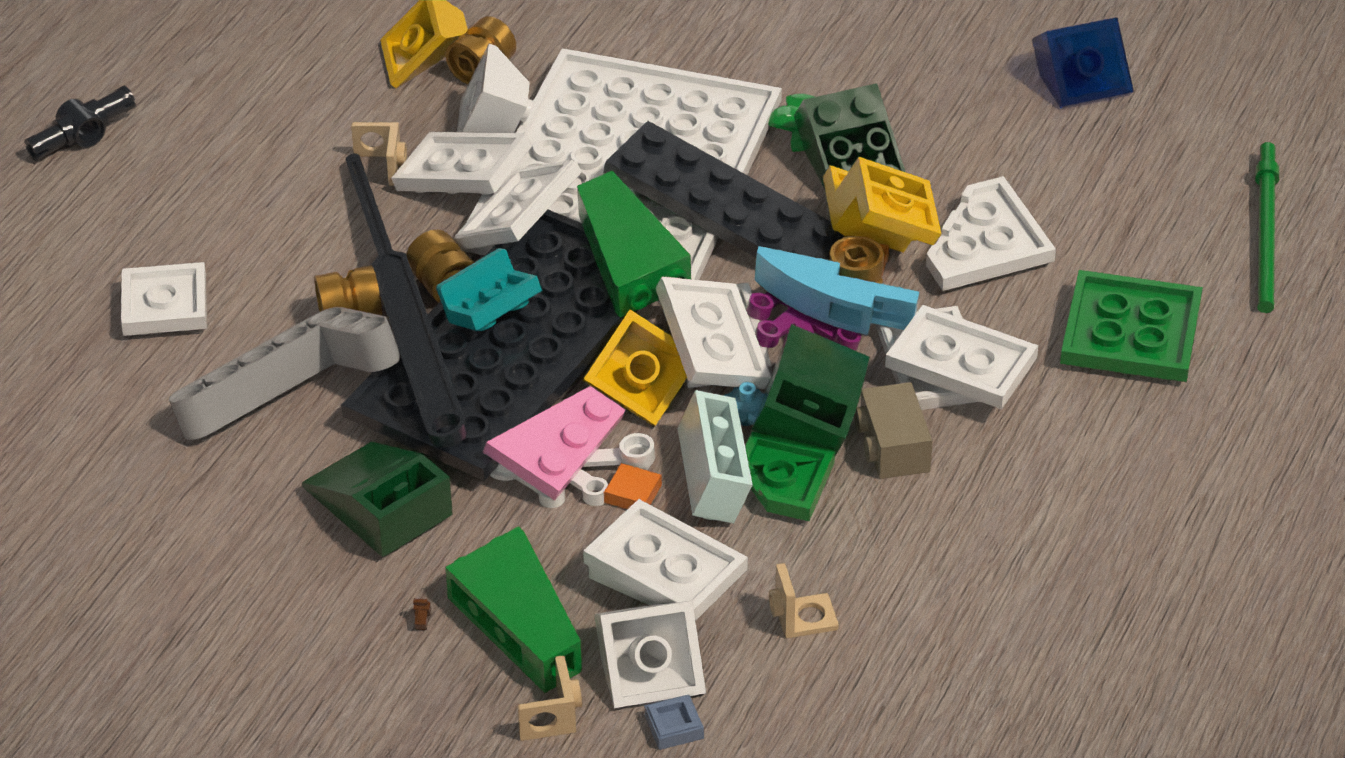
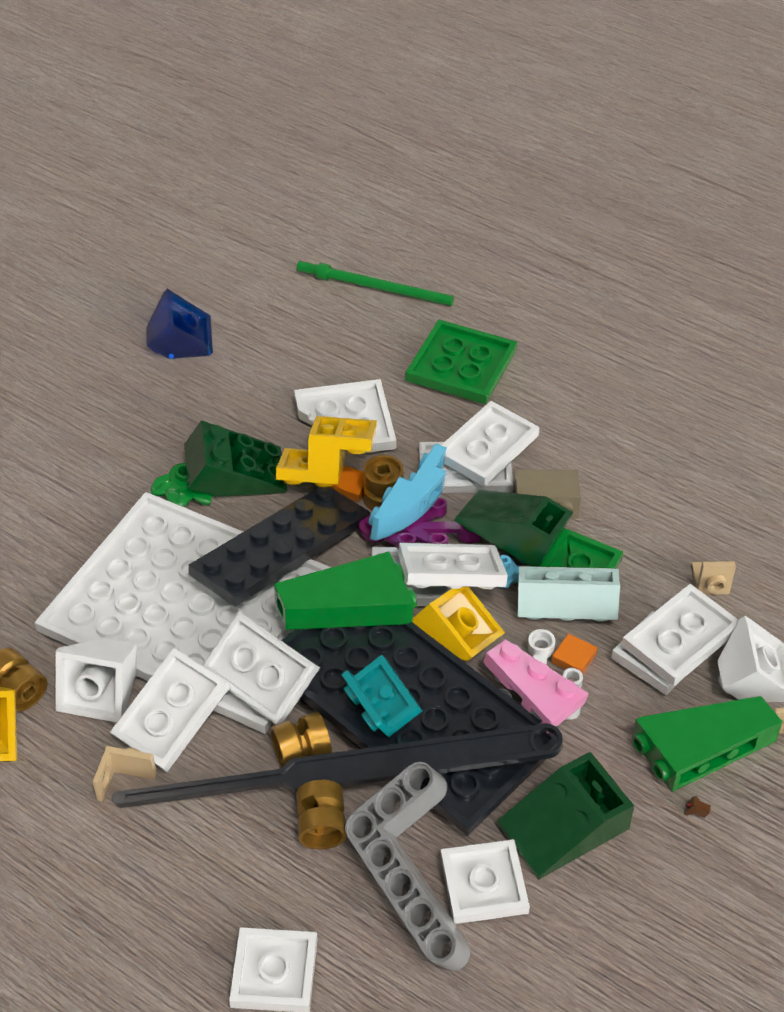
camera: 80 degrees left, 5 degrees up
(288, 438) = (484, 881): none -> white plate

